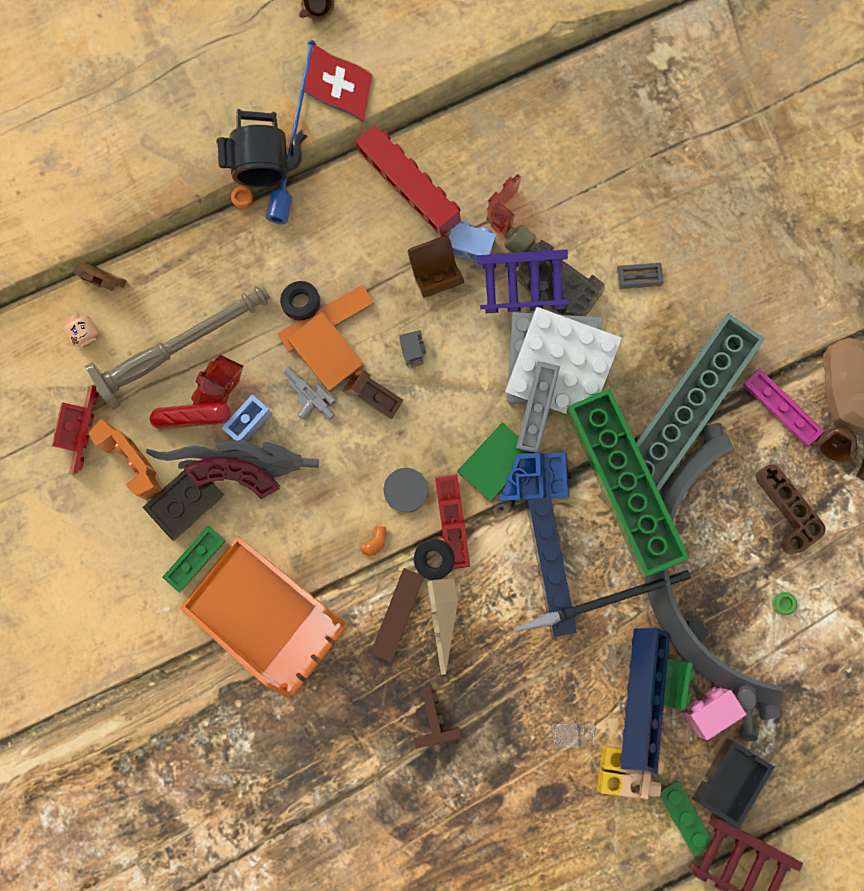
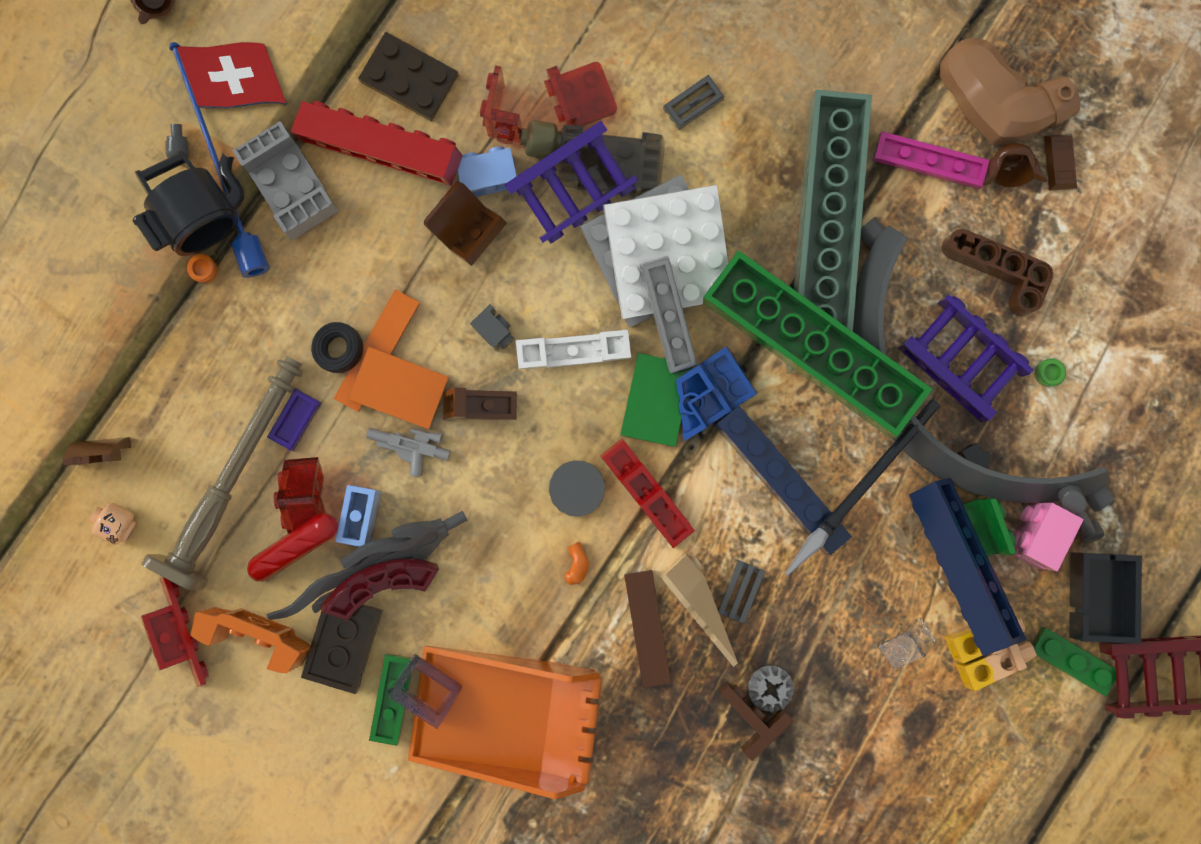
camera: 30 degrees left, 5 degrees up
(208, 569) = (415, 704): none -> tile
(242, 332) = (294, 420): none -> dark purple tile
(275, 105) = (176, 141): none -> dark grey cylinder
(332, 171) = (286, 180): none -> light grey plate
(424, 568) = (657, 530): black tyre -> none
(450, 700) = (757, 687): none -> light grey gear
(455, 149) = (408, 76): none -> dark brown plate
(458, 394) = (573, 350): none -> white slope
(492, 616) = (750, 598): none -> dark grey tile
(565, 226) = (580, 94): none -> clear red bracket
(706, 553) = (959, 386): none -> dark purple fence

